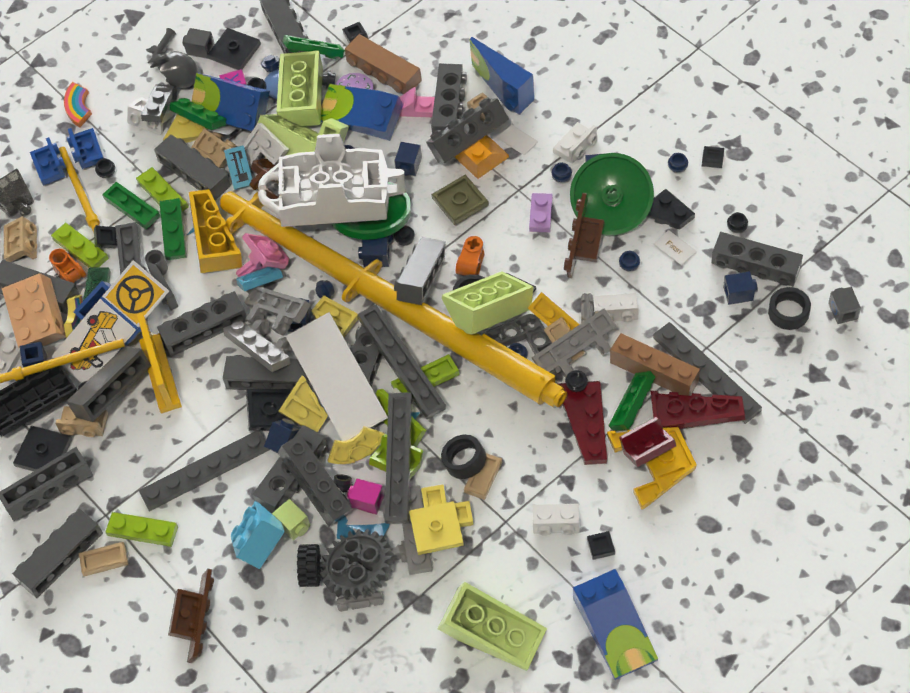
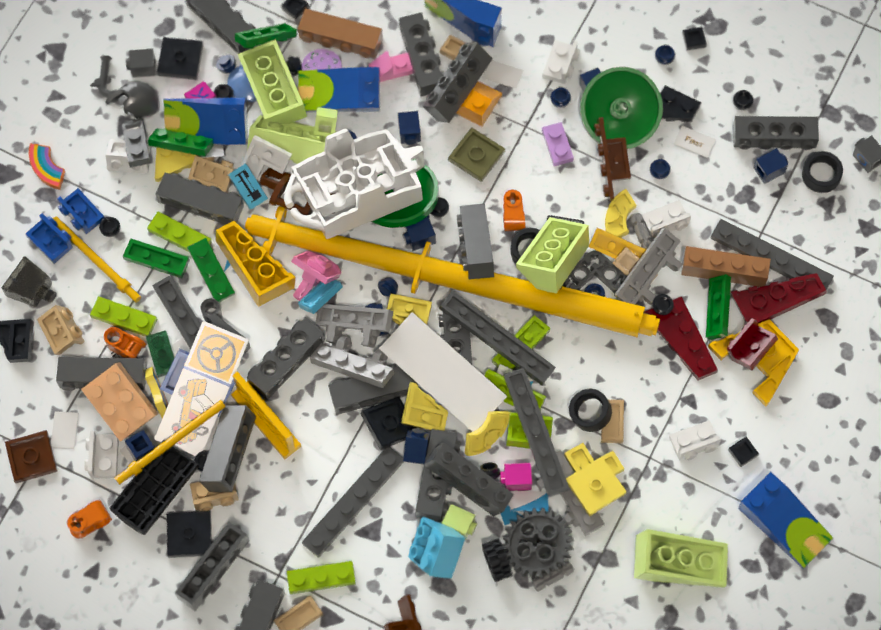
camera: 25 degrees left, 10 degrees up
(105, 236) = (146, 299): black tile -> none
(572, 289) = (618, 212): none -> light yellow tile

